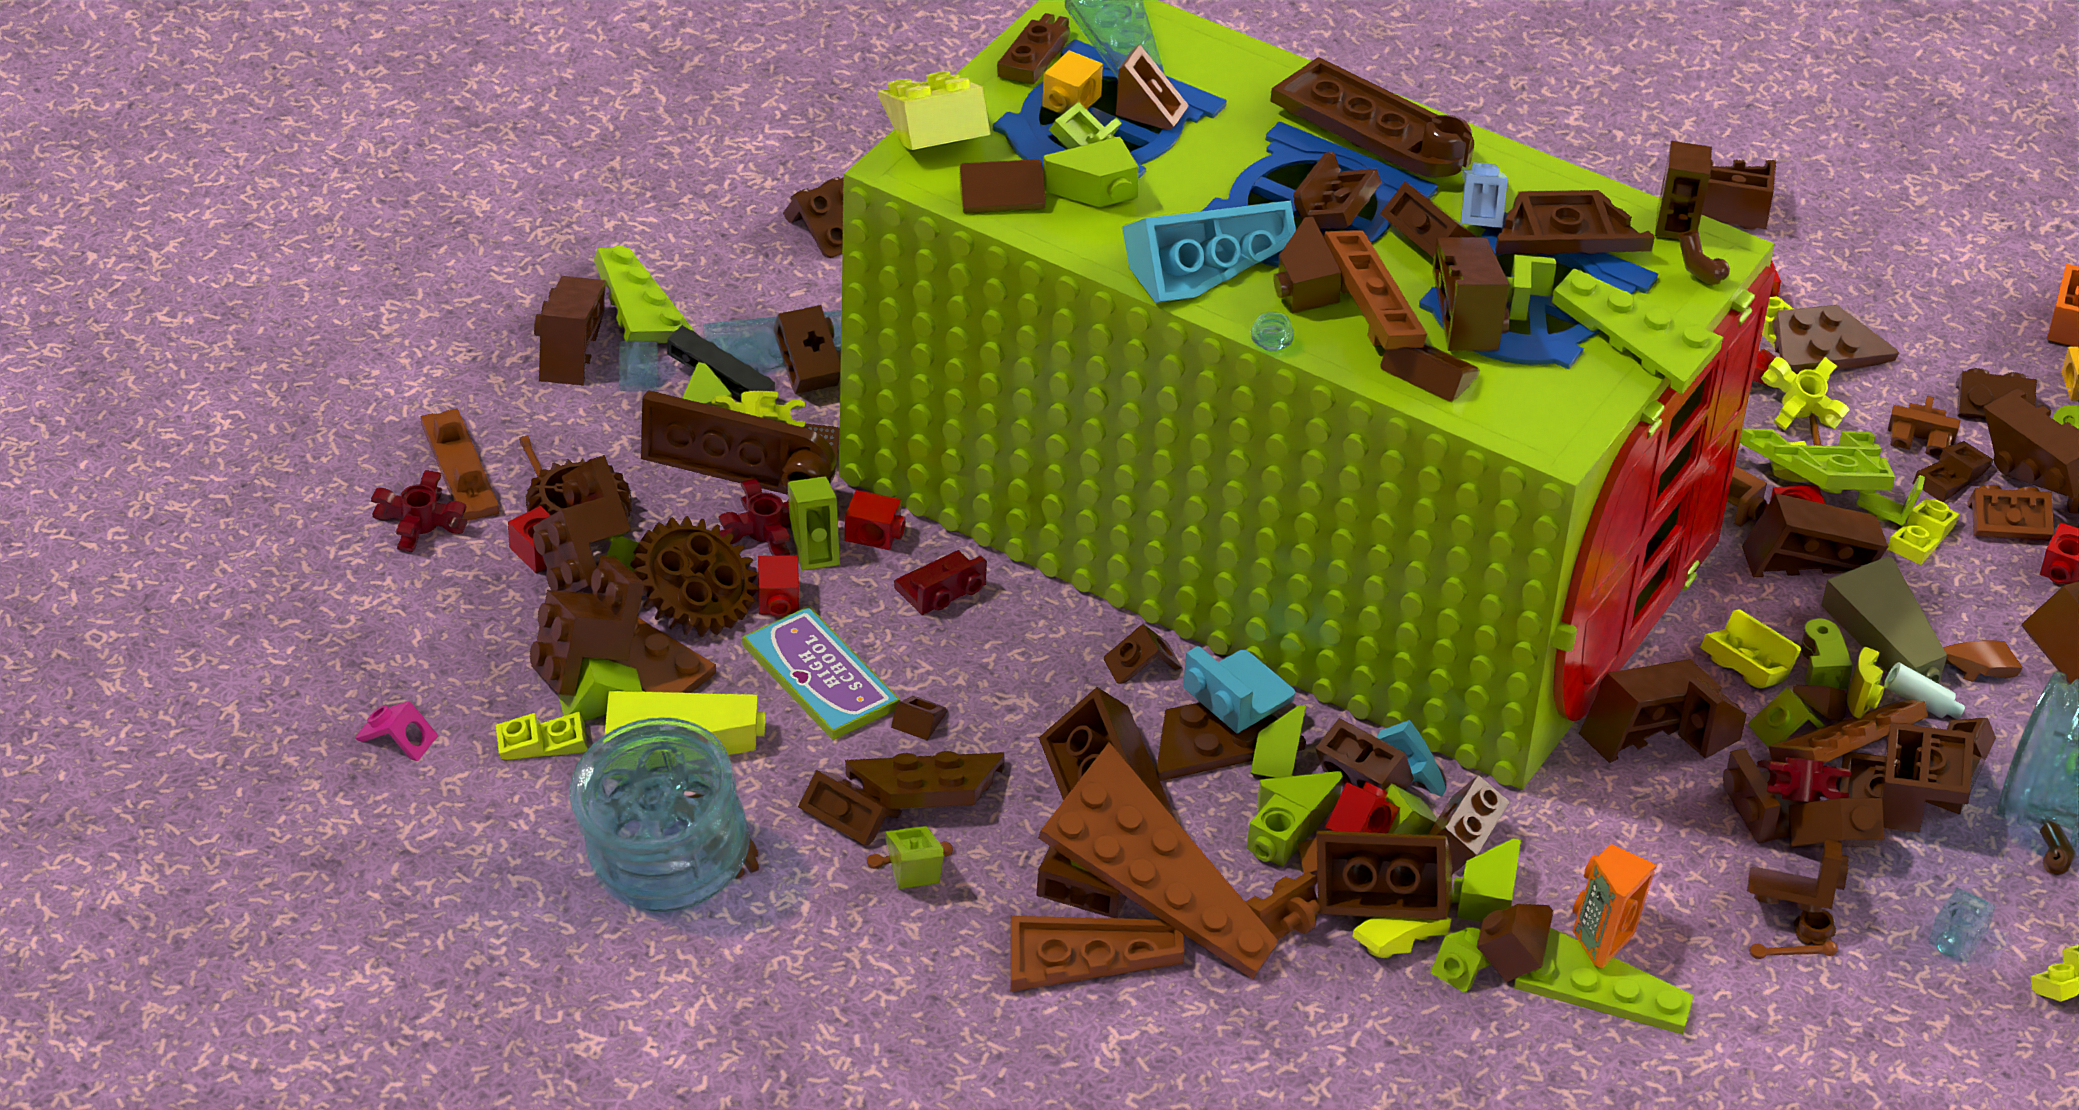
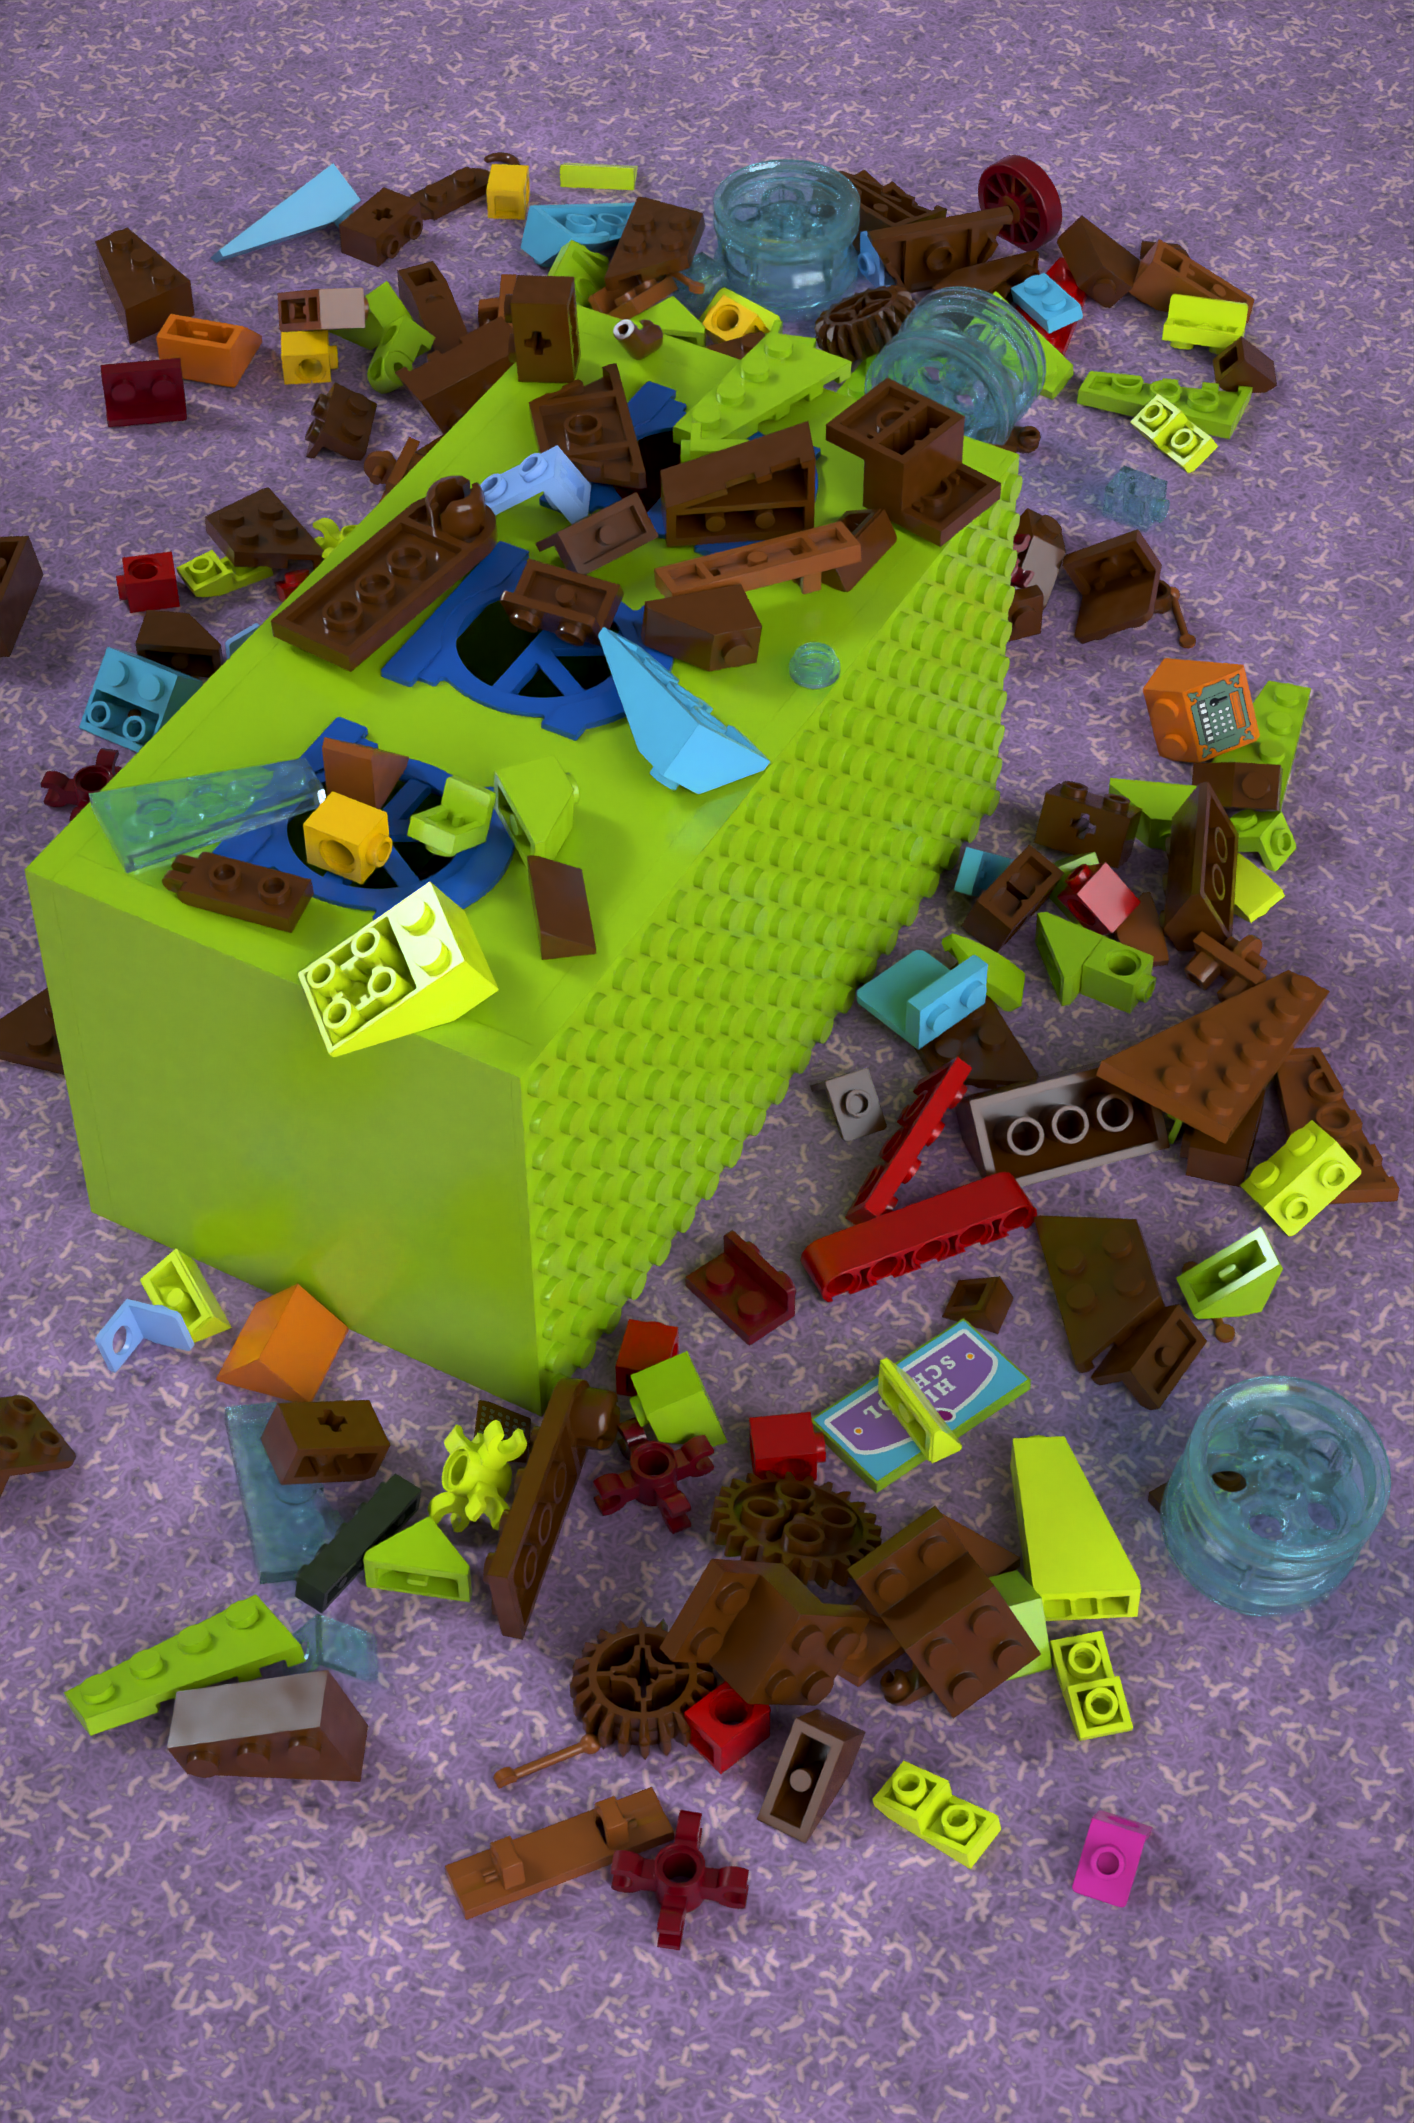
camera: 90 degrees left, 5 degrees up
(453, 643) = (931, 1812): none -> neon yellow slope
(495, 578) = (810, 1773): none -> reddish brown slope
(798, 651) = (916, 1413): none -> neon yellow slope
(989, 680) = (917, 1234): none -> red beam
(1012, 905) = (1301, 1178): none -> neon yellow bracket
(1081, 672) = (919, 1128): none -> red wing
(1512, 383) = (913, 461): none -> reddish brown bracket
(2010, 278) = (144, 392): none -> dark red bracket

